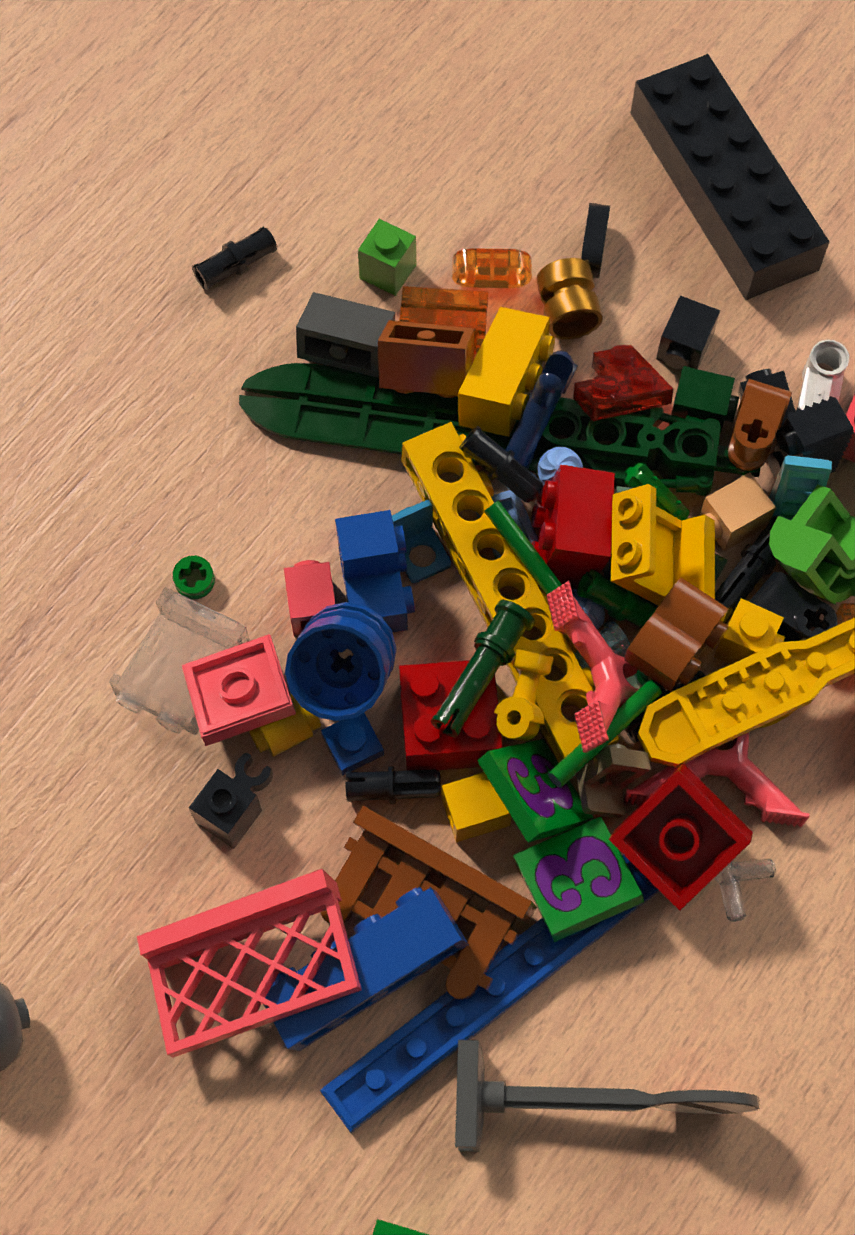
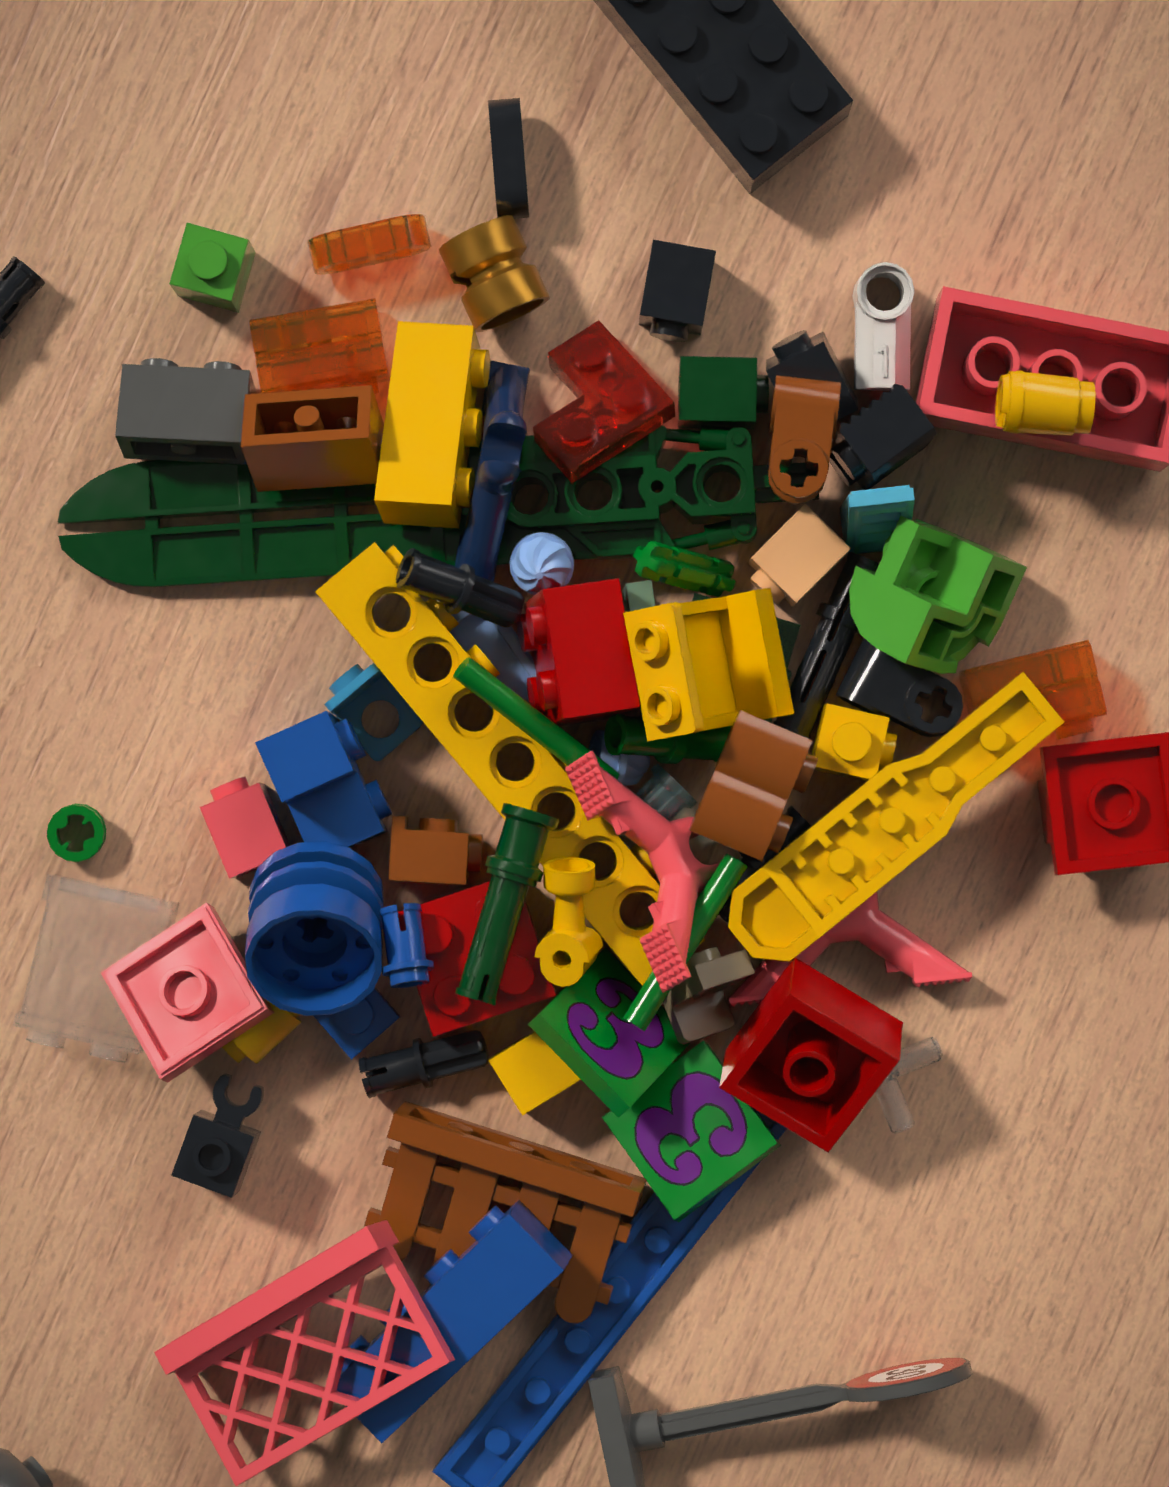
camera: 10 degrees left, 20 degrees up
(402, 692) = (406, 948): none -> blue pin
(435, 640) = (433, 852): none -> dark orange brick

